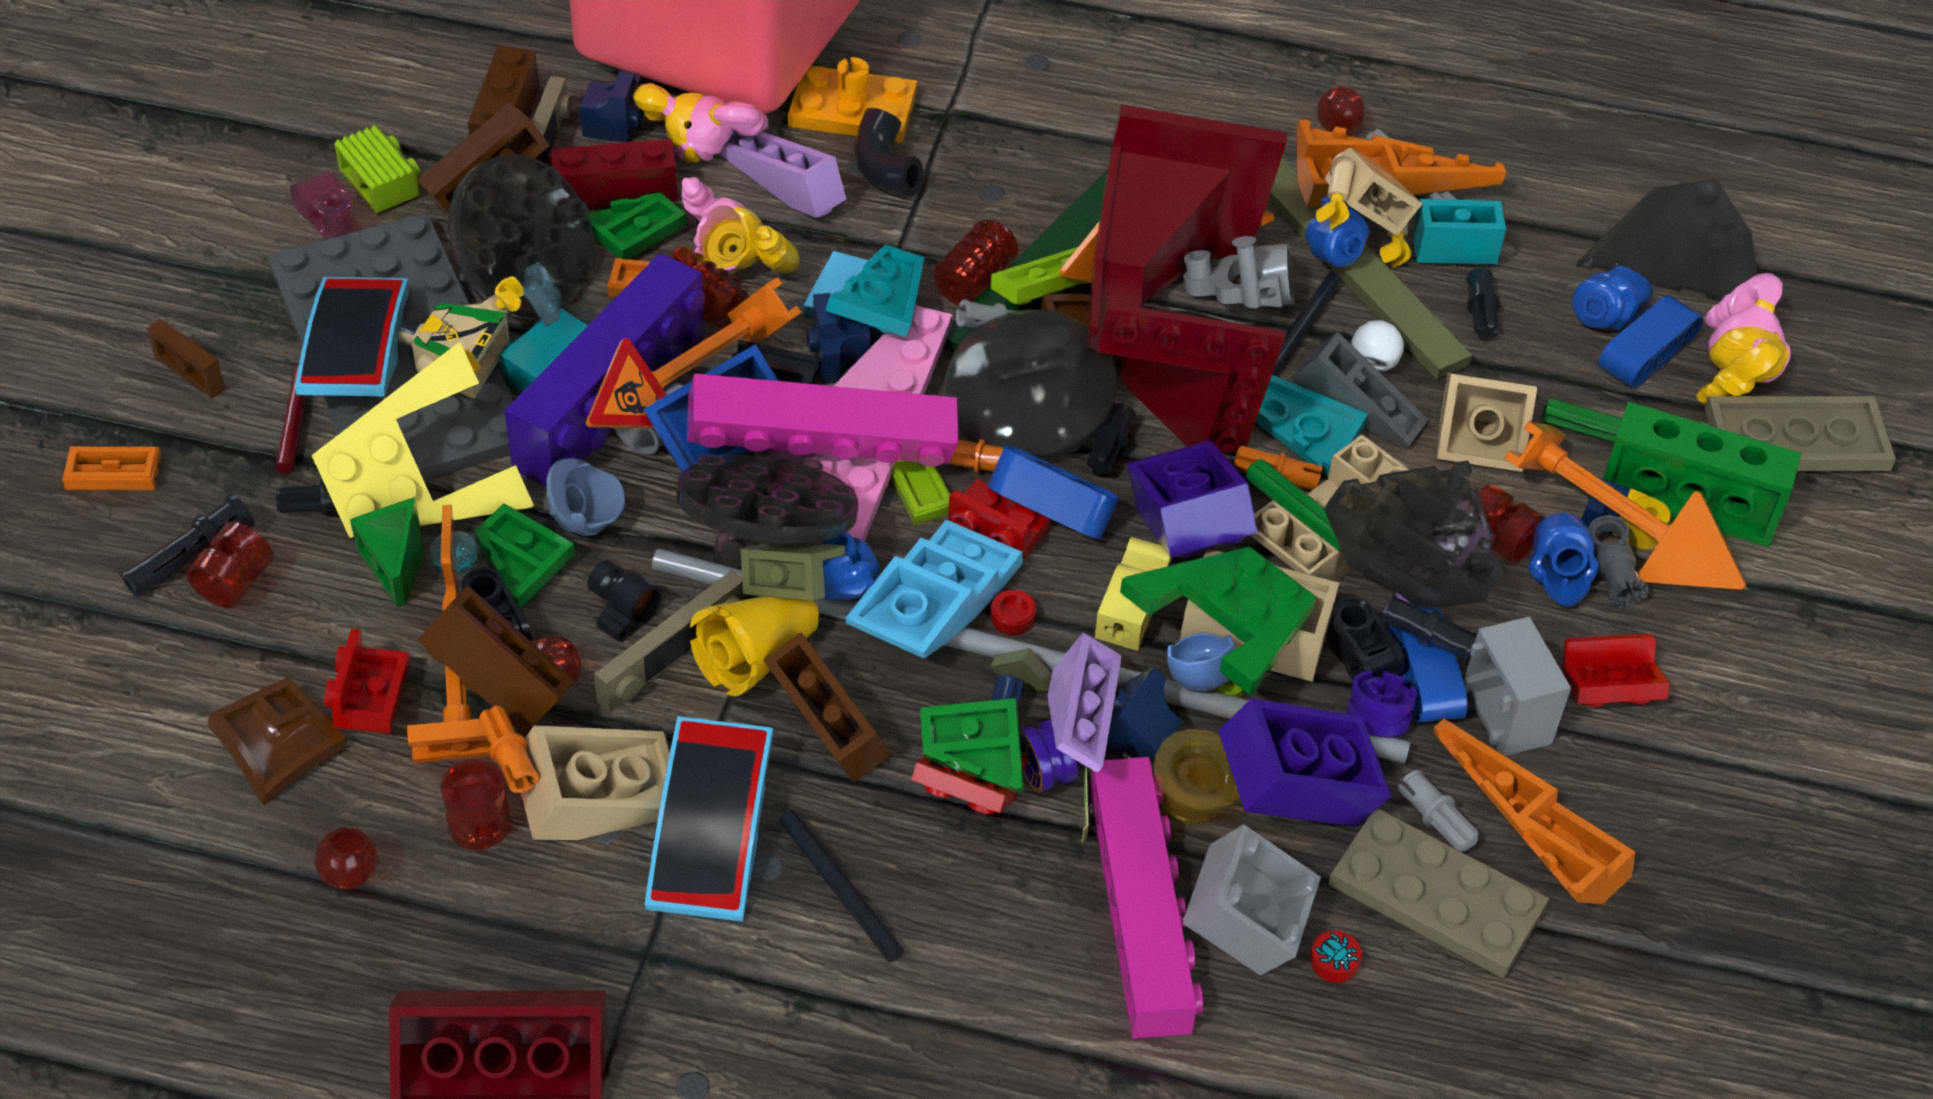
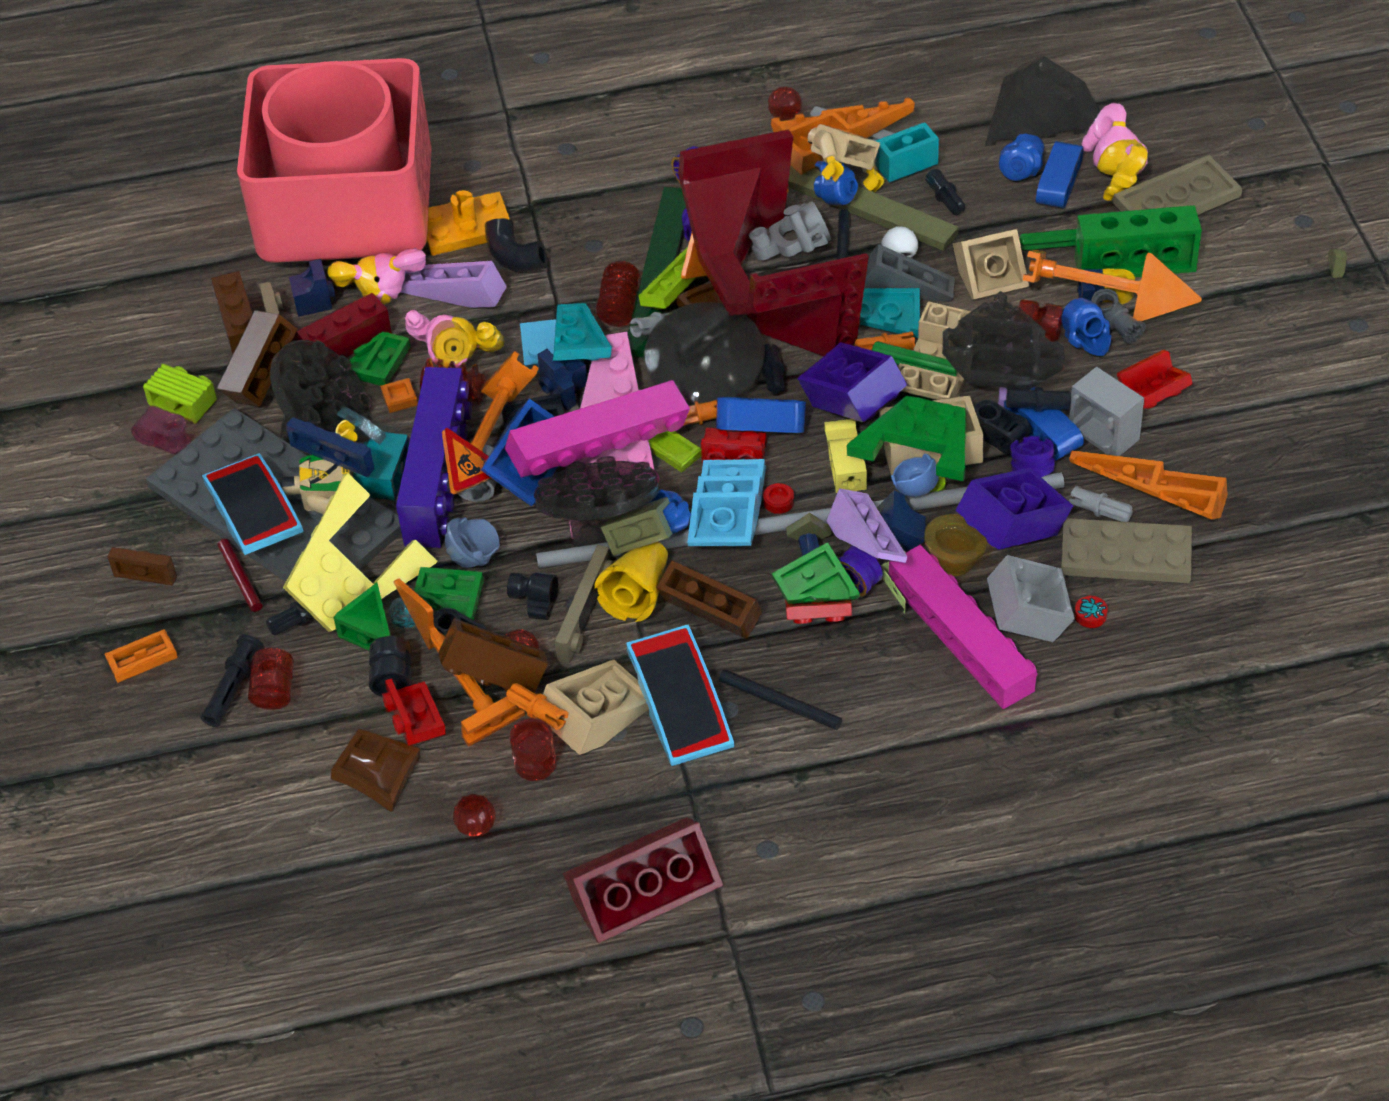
camera: 20 degrees left, 0 degrees up
(380, 610) = (389, 659): none -> black wheel
(477, 303) = (330, 447): none -> dark blue plate

